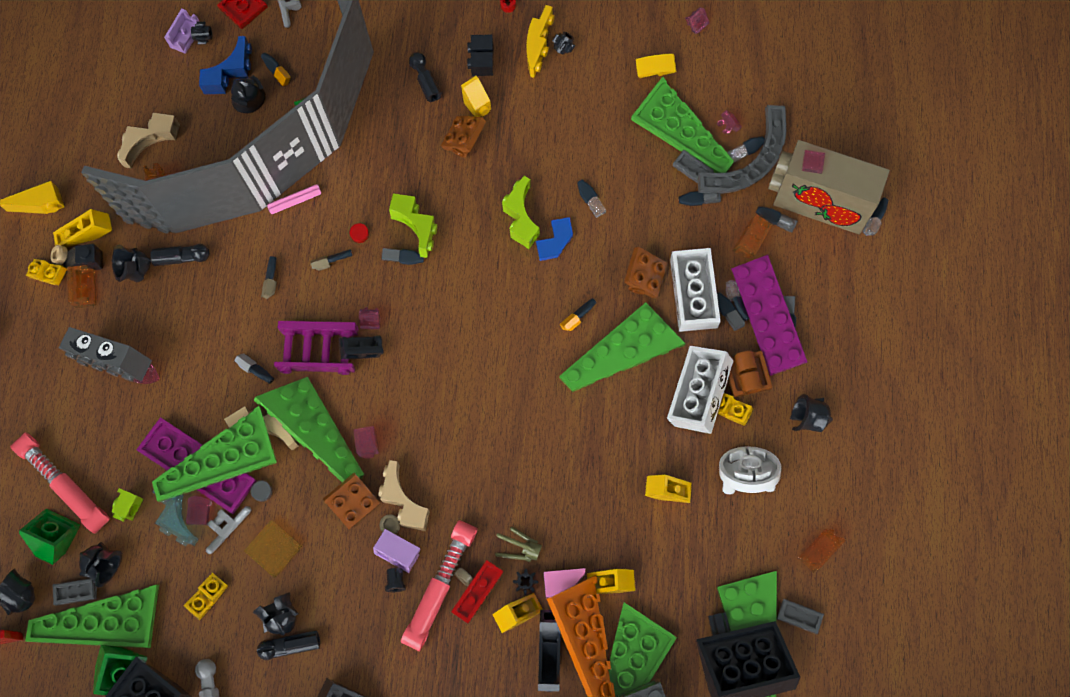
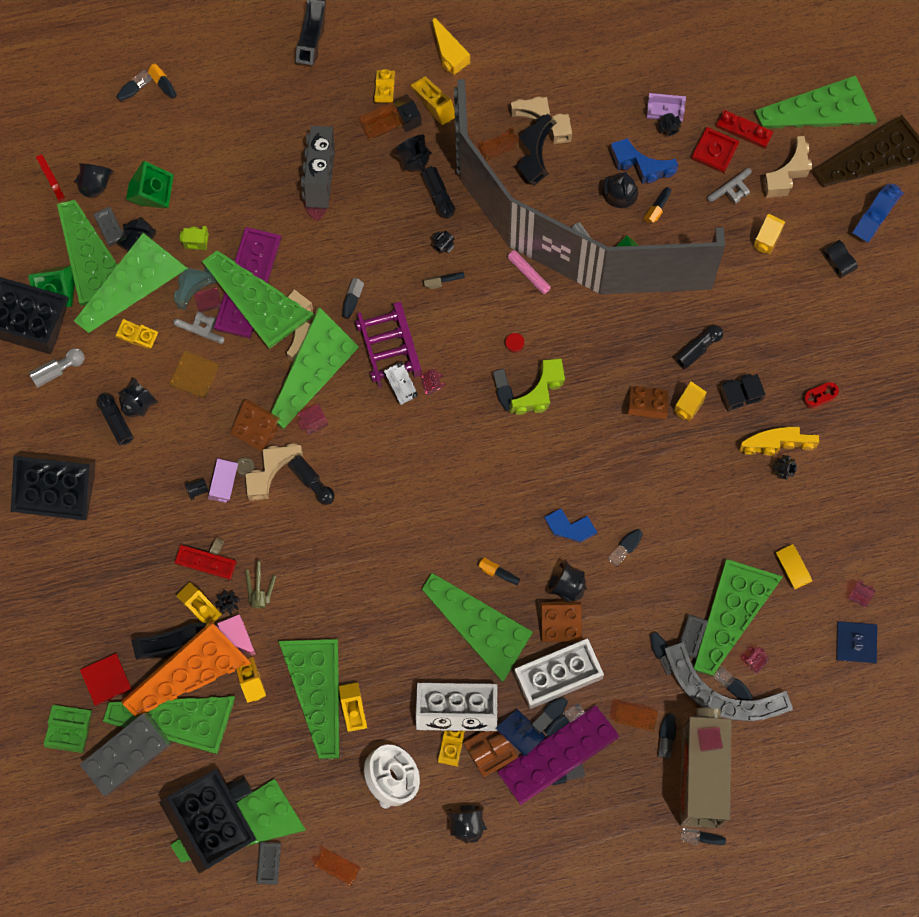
camera: 70 degrees right, 0 degrees up
(59, 254) = (404, 90): tan tile -> none
(91, 515) = (177, 213): coral piece -> none
(144, 576) = (136, 276): none -> bright green wing
(164, 150) = (534, 138): none -> black arch
(232, 265) = (443, 242): none -> black gear
(261, 491) = (242, 346): dark grey tile -> none
(324, 262) = (475, 322): piece -> none
(418, 629) = (156, 522): coral piece -> none
(426, 462) = (324, 494): none -> black piece
(523, 229) = (592, 476): lime arch -> none
(614, 251) = (569, 585): none -> black helmet
(631, 517) = (316, 682): none -> bright green wing
(737, 40) = (857, 642): none -> dark blue piece
(740, 341) = (519, 732): none -> dark blue piece

